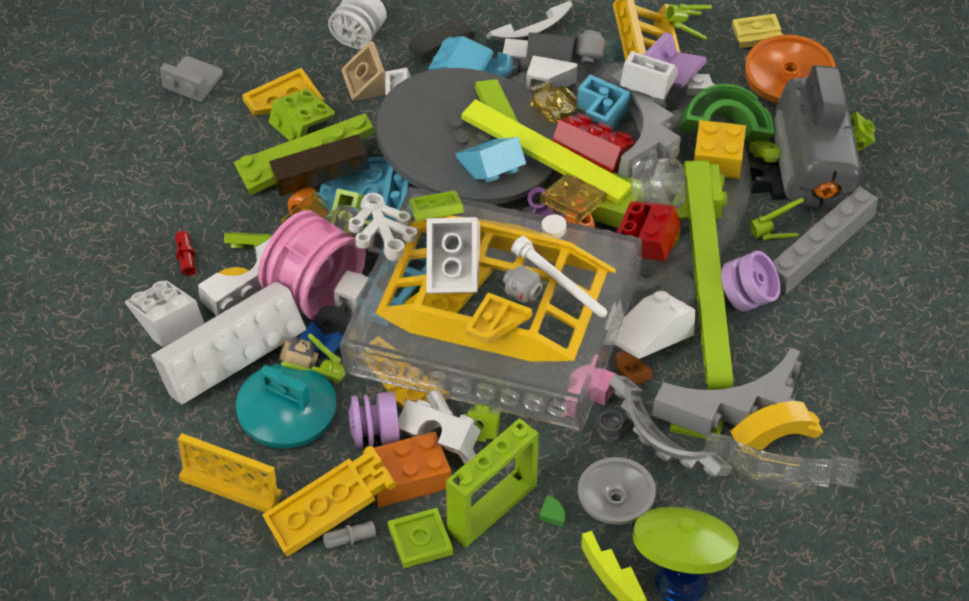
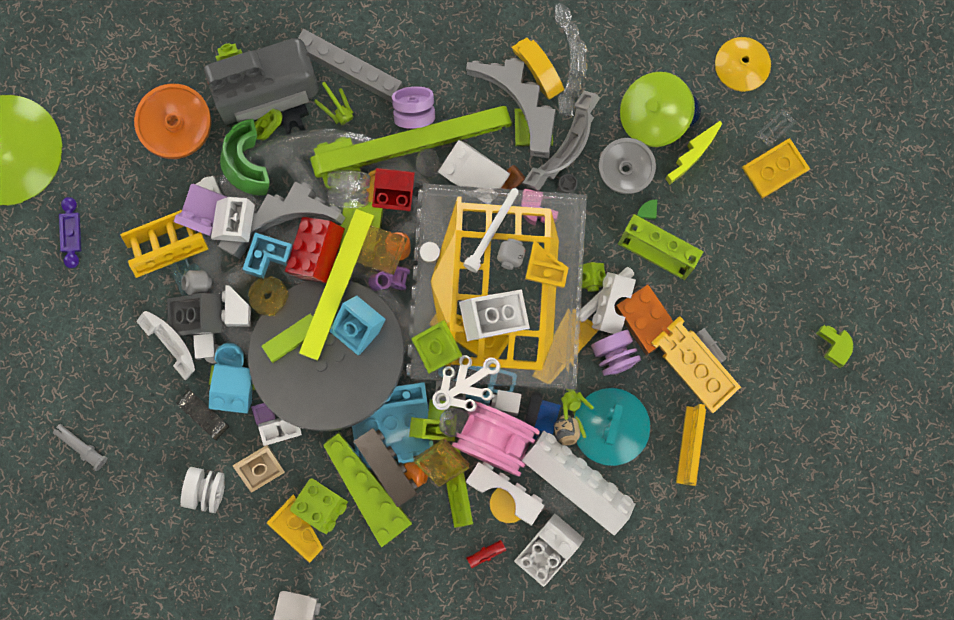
camera: 110 degrees left, 30 degrees up
(420, 538) = (699, 295): lime plate -> none
(680, 13) = (135, 221): lime plant -> none
(721, 145) = (288, 154): yellow brick -> none
(755, 29) = (127, 158): light yellow plate -> none

